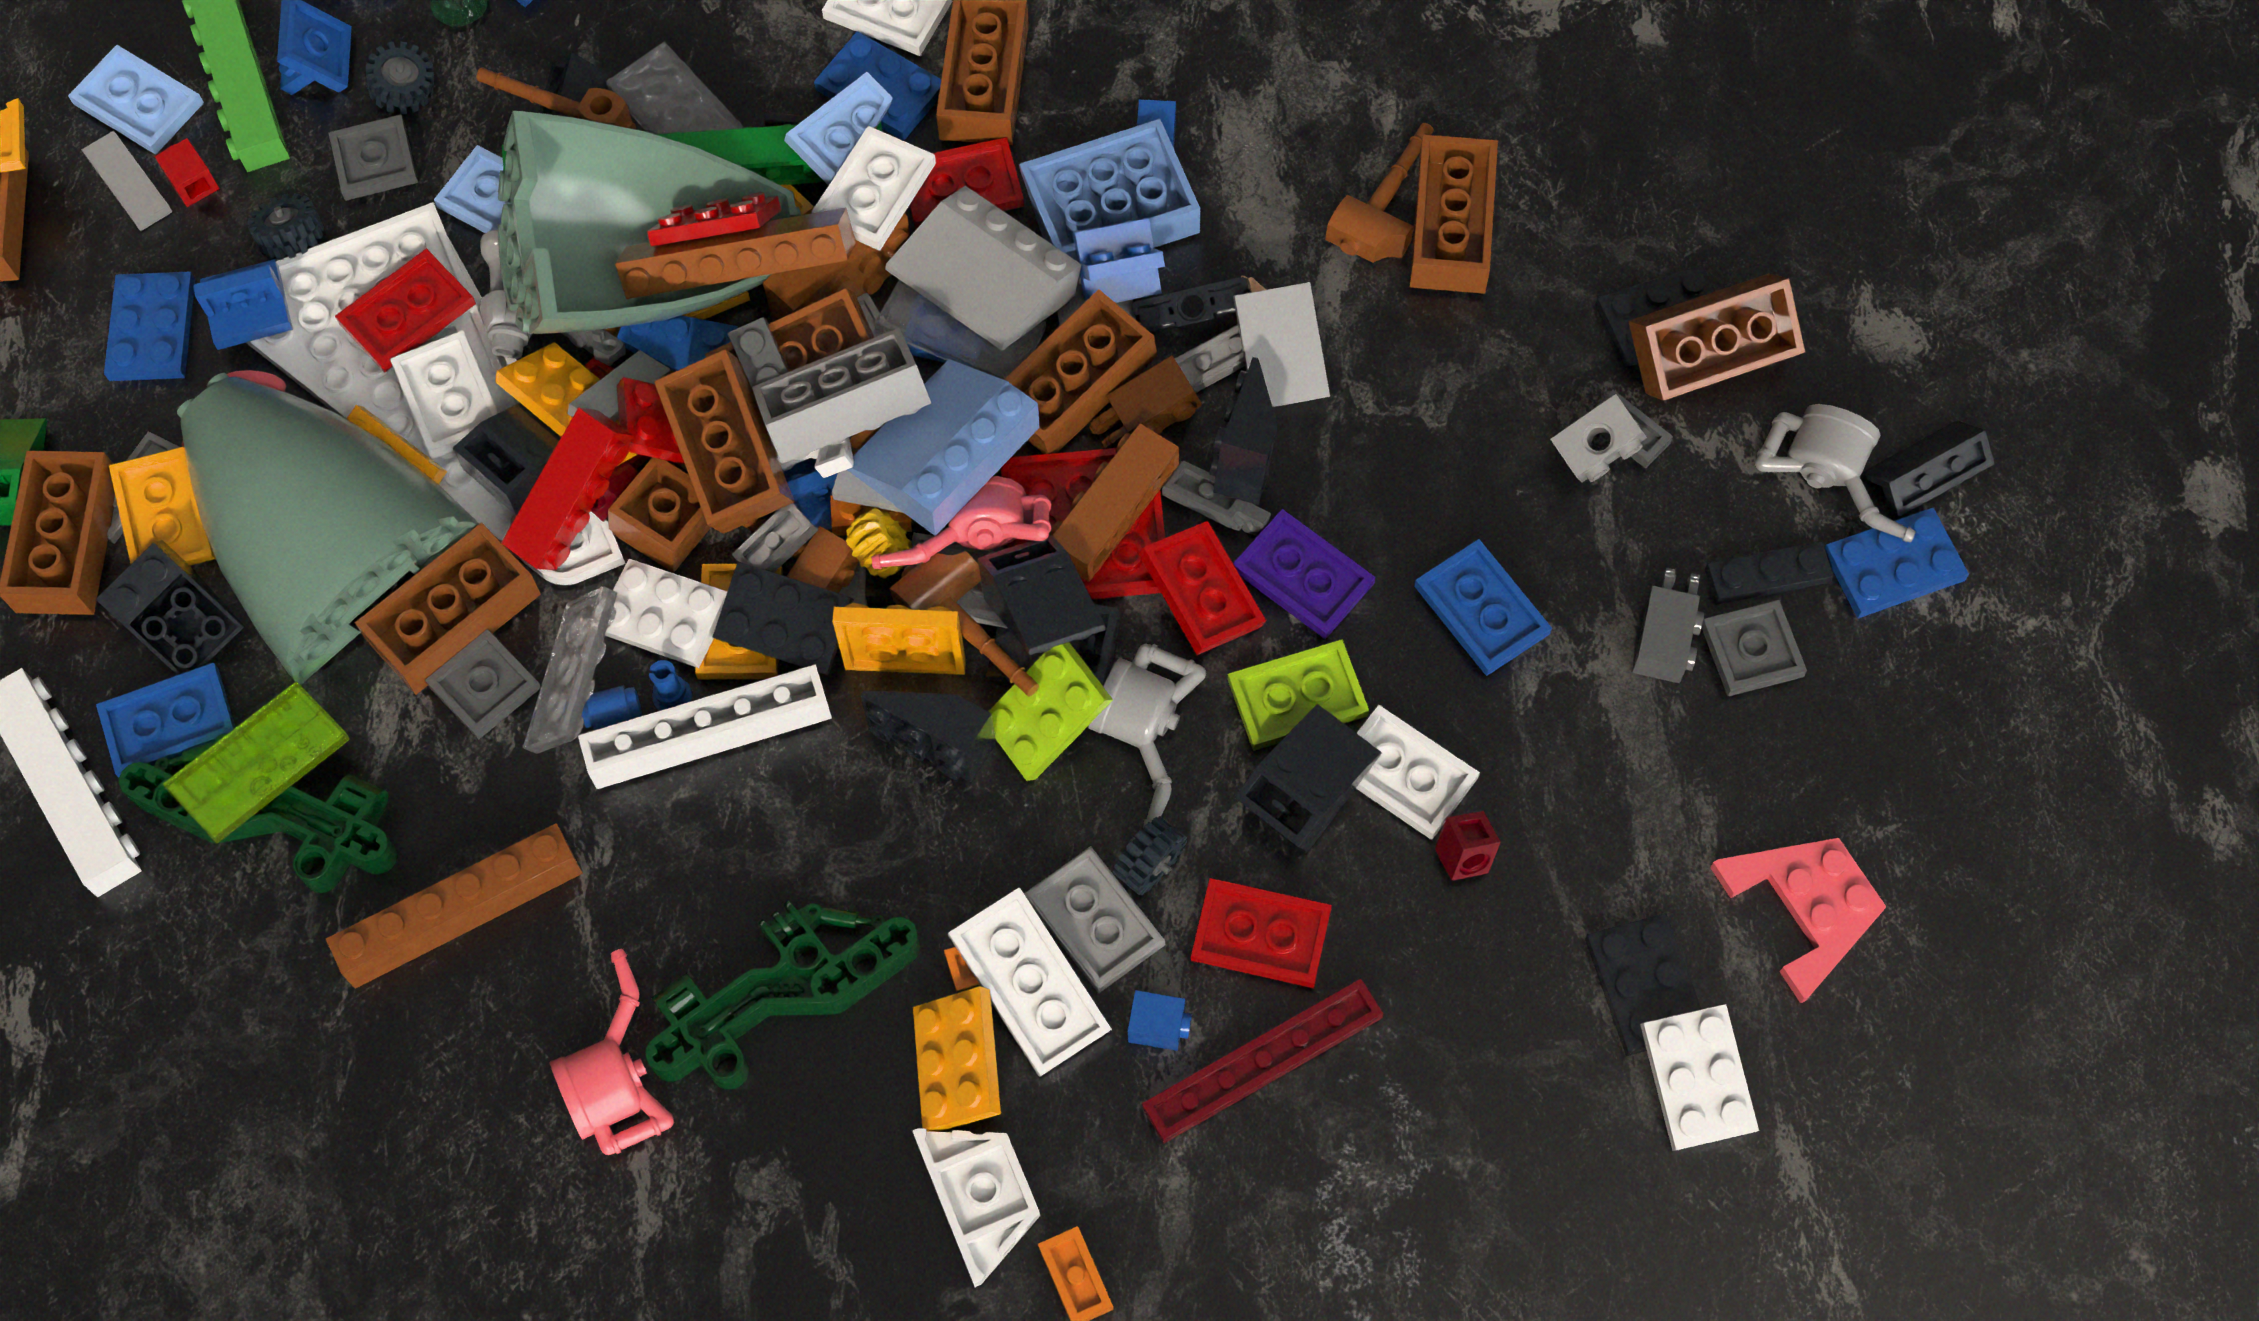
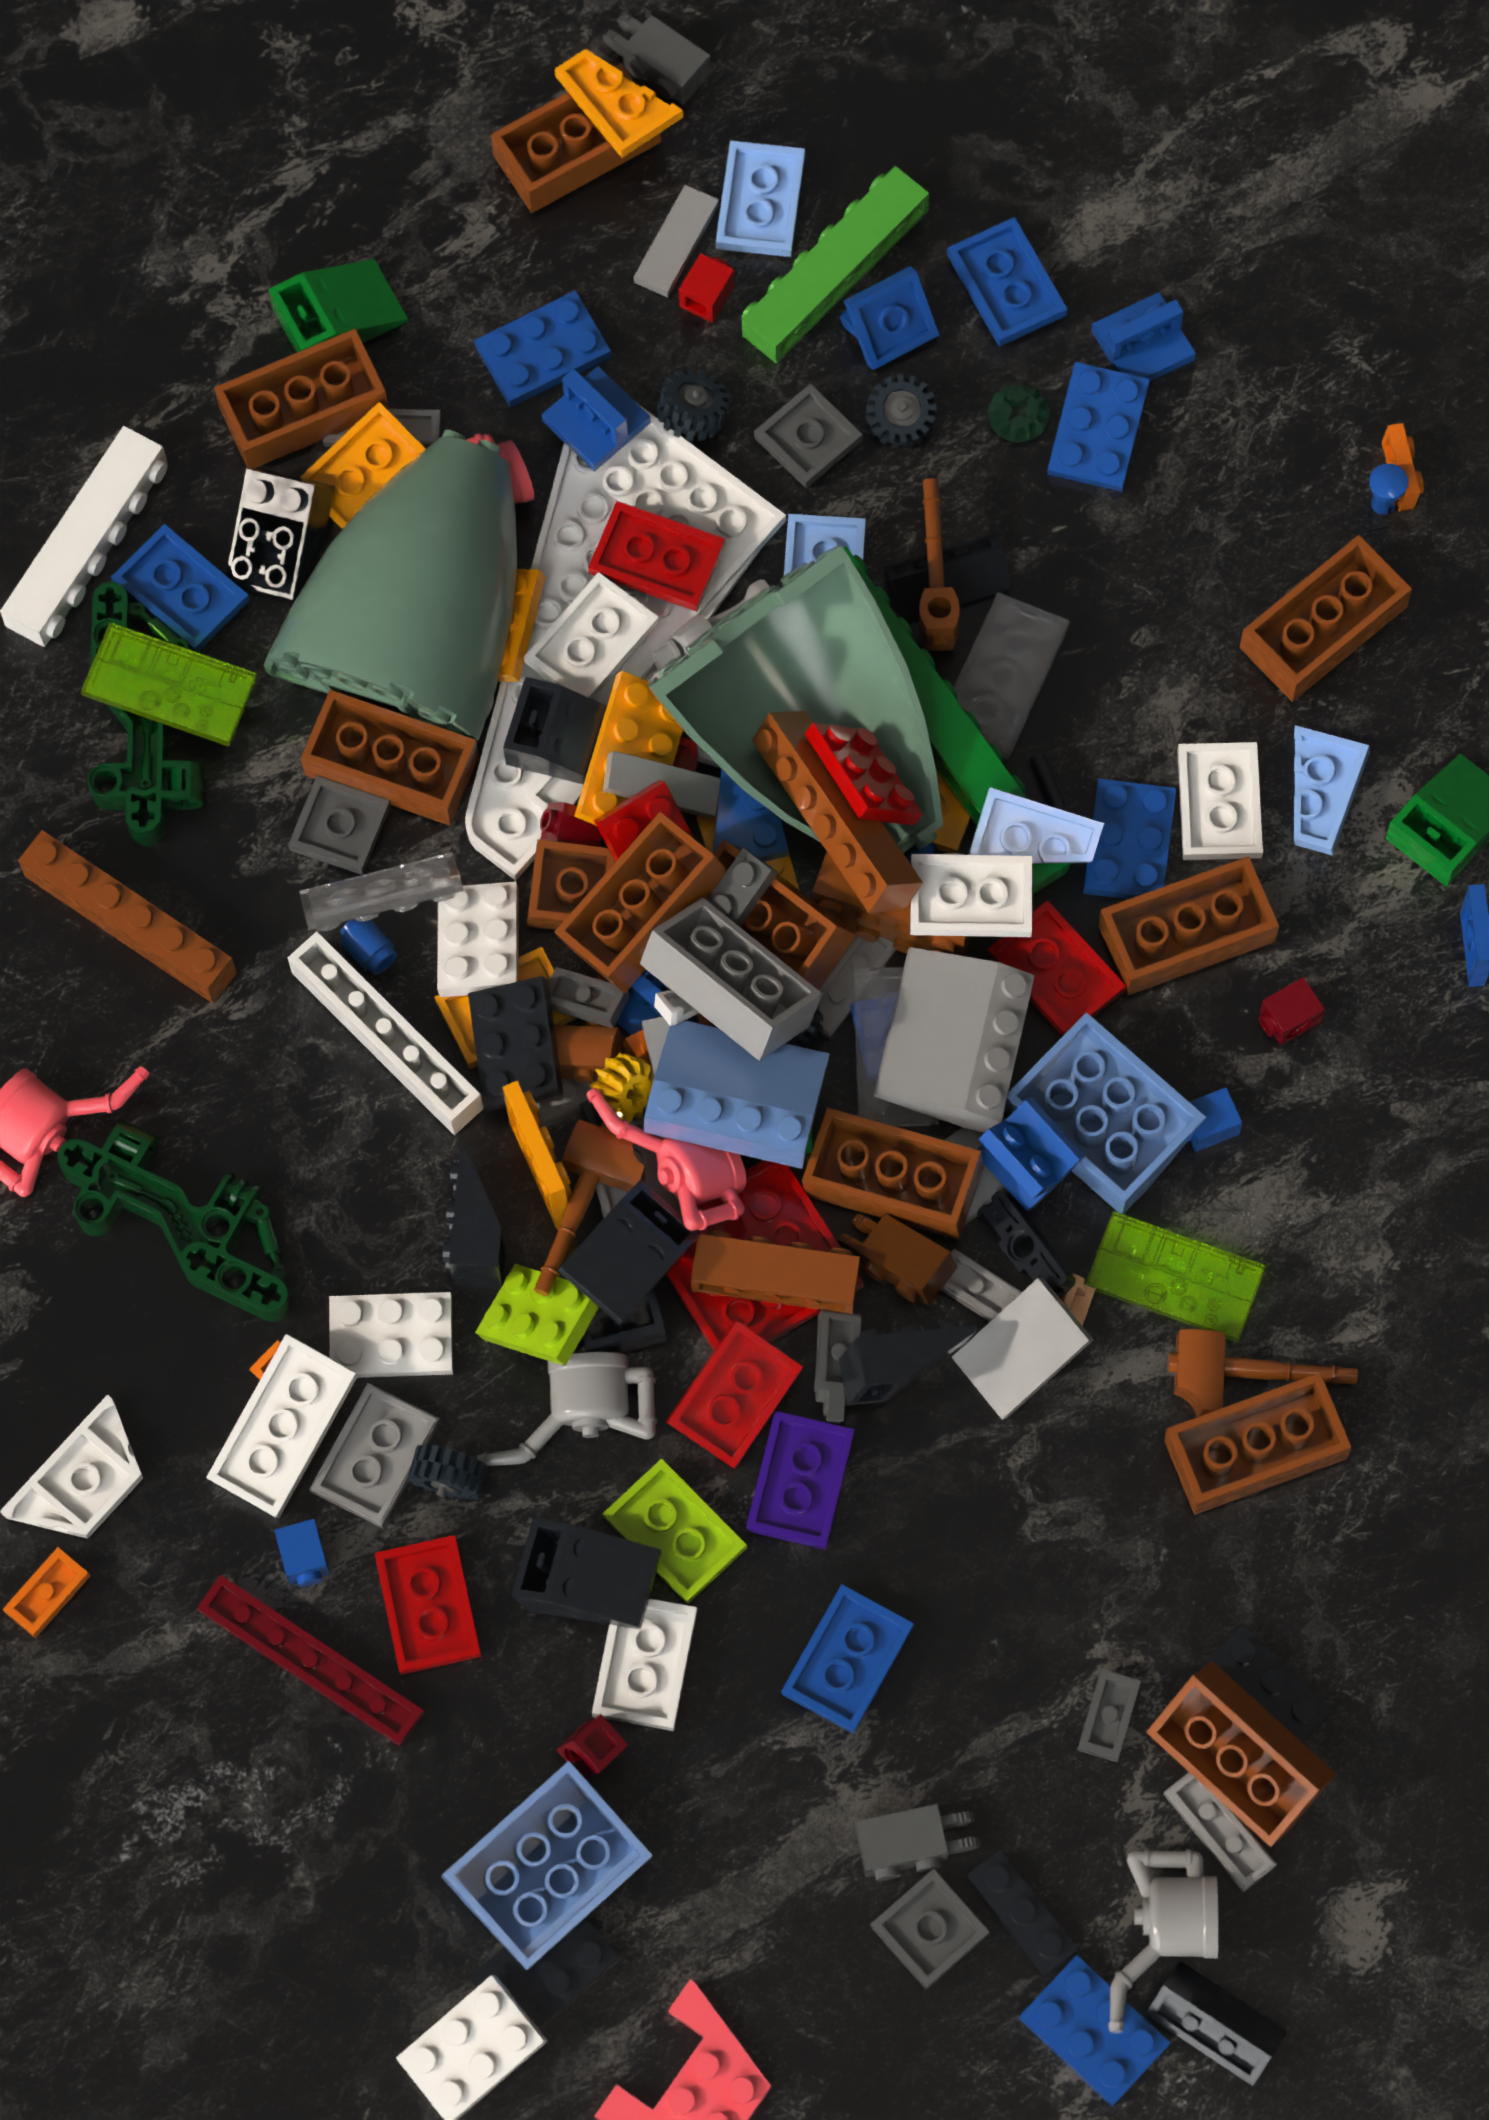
camera: 65 degrees right, 5 degrees up
(567, 489) = (534, 795): red brick -> none
(668, 688) = (409, 986): blue pin -> none
(956, 1060) = (184, 1399): light orange plate -> none
(988, 851) = (392, 1334): none -> white plate
(1097, 33) = (1291, 1011): none -> dark red brick
(1272, 217) = (1175, 1276): none -> clear neon green tile
(1557, 933) = (546, 1865): none -> medium blue slope
(1576, 439) = (1057, 1672): light grey brick -> none
(1763, 393) = (1220, 1832): none -> light grey tile

